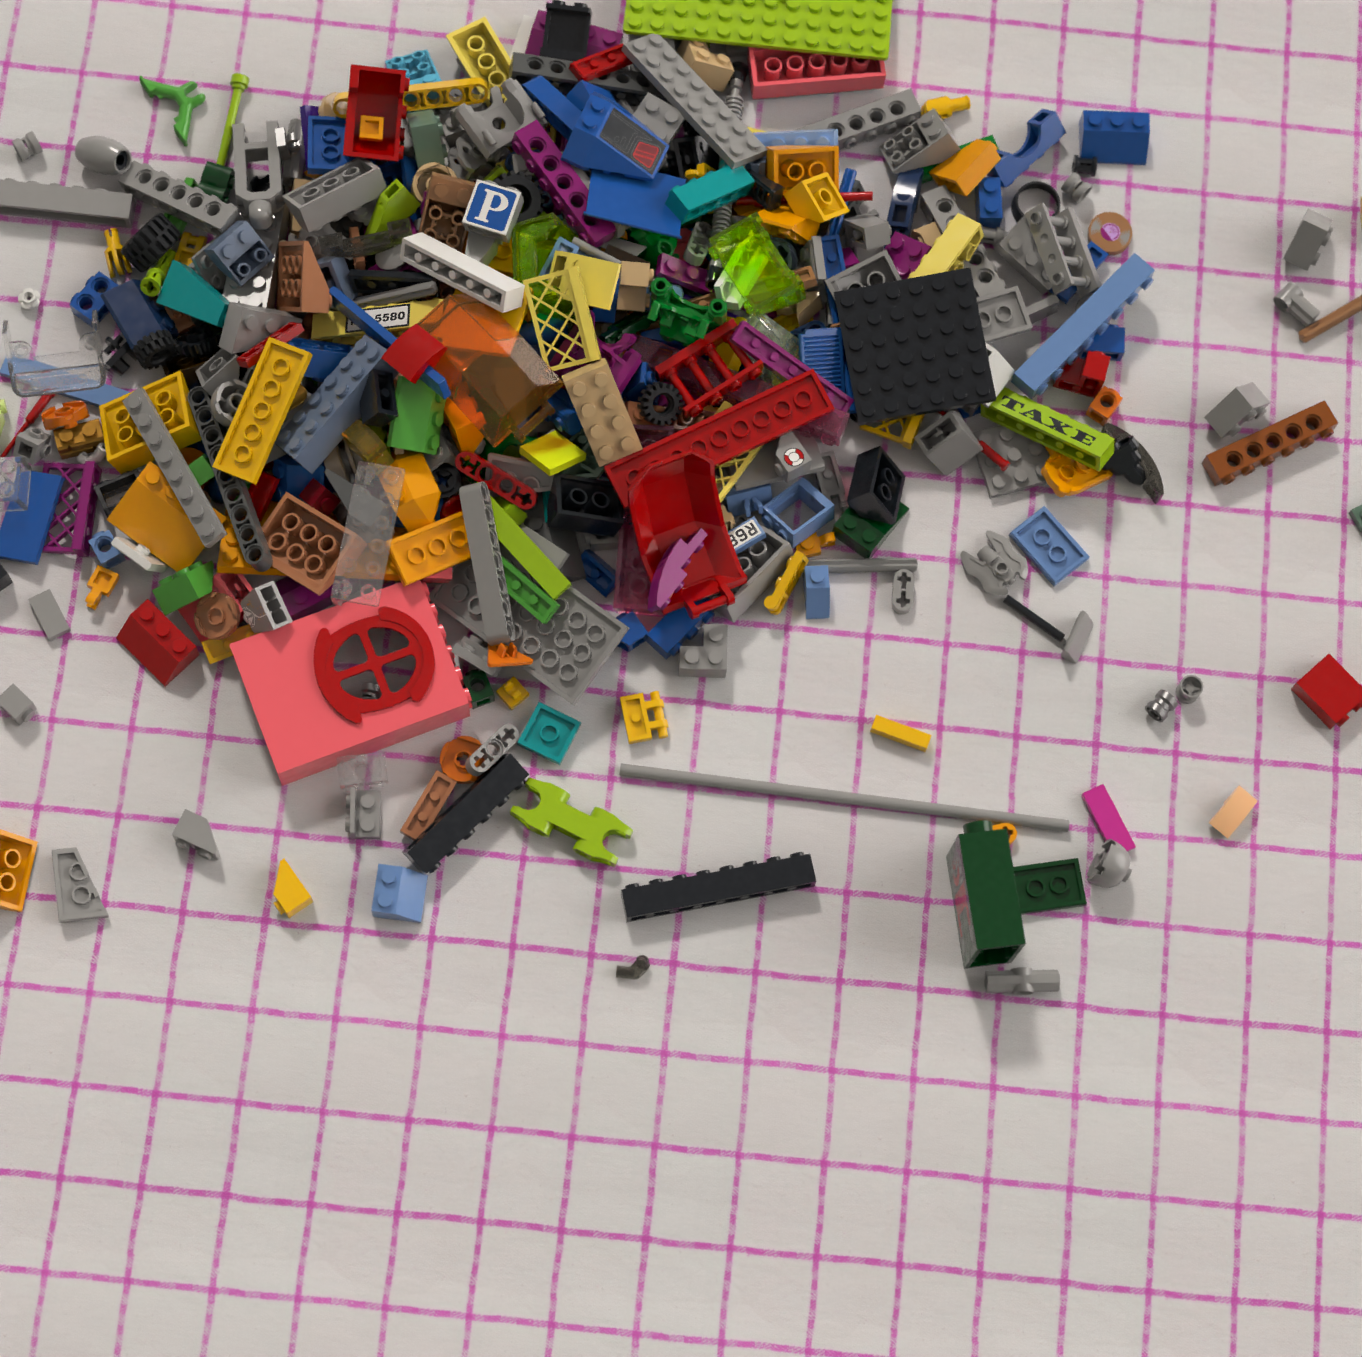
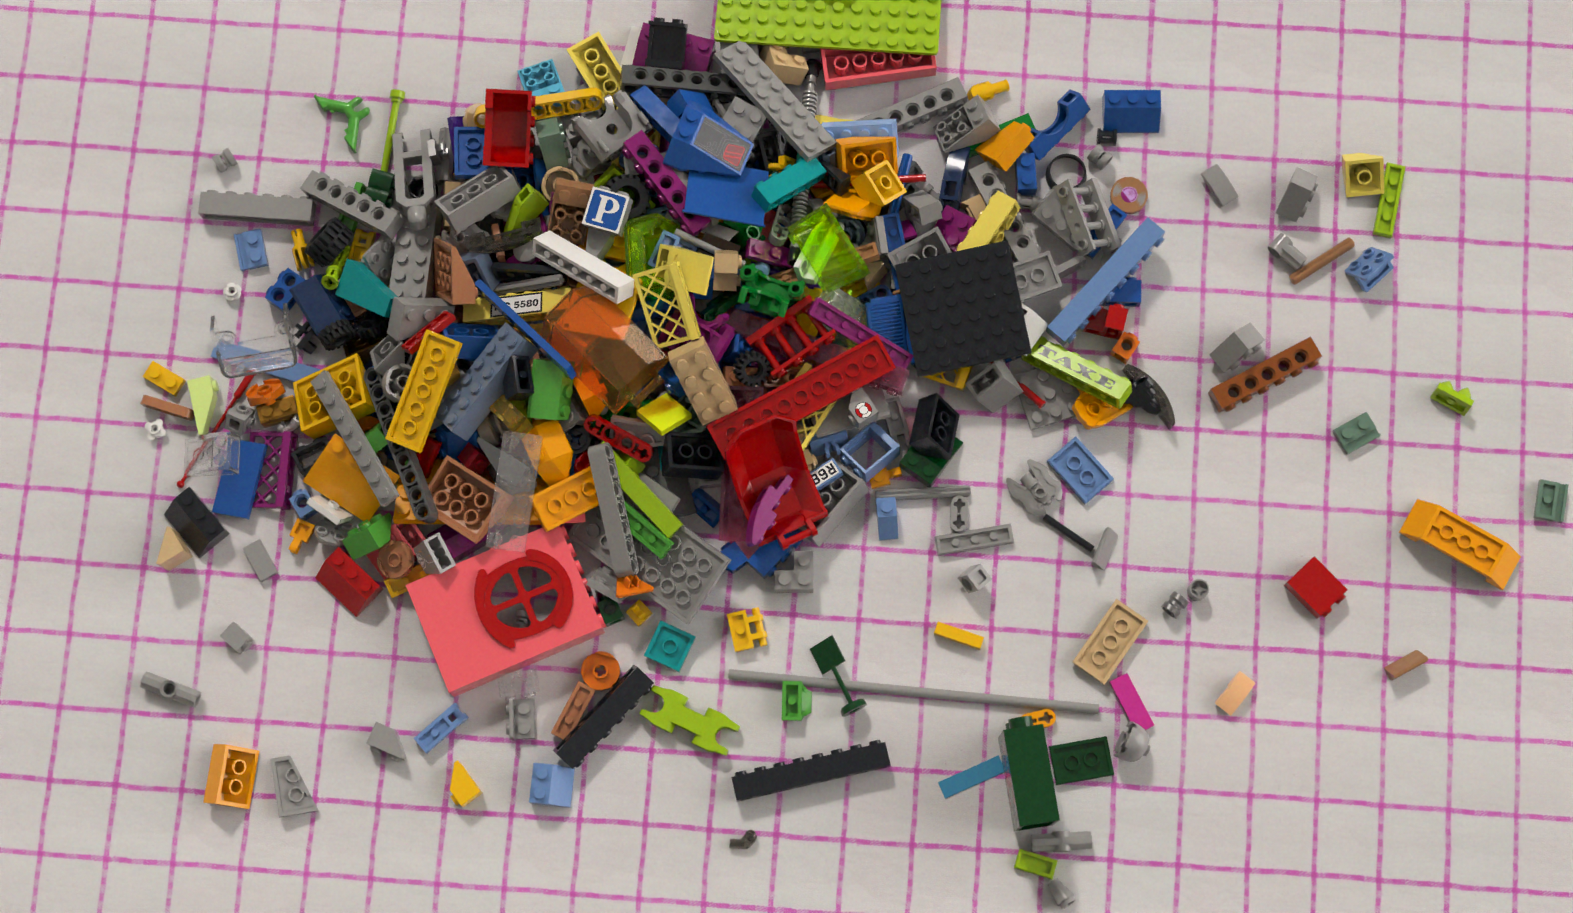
camera: 10 degrees right, 5 degrees up
(54, 251) = (251, 249): none -> medium blue plate
(103, 155) = (287, 166): light grey piece -> none
(139, 582) = (330, 533): none -> light grey plate
(239, 252) = (401, 250): sand blue slope -> none
(264, 821) = (440, 728): none -> medium blue plate
(371, 128) = (506, 138): light orange plate -> none
(414, 352) = (545, 341): red slope -> none
(483, 752) = (631, 661): light grey beam -> none
(600, 63) = (694, 70): red tile -> none
(701, 803) = (795, 701): none -> bright green slope
(741, 752) = (828, 658): none -> dark green piece
(786, 583) = (861, 512): yellow plate -> none
(913, 902) = (971, 777): none -> dark azure sticker
(920, 622) = (974, 539): none -> light grey tile
(921, 665) = (974, 578): none -> light grey brick
(990, 1008) = (1035, 864): none -> lime tile
(1021, 1044) = (1061, 894): none -> light grey cone
(1083, 746) = (1110, 641): none -> tan plate
(1218, 226) = (1219, 184): none -> light grey slope

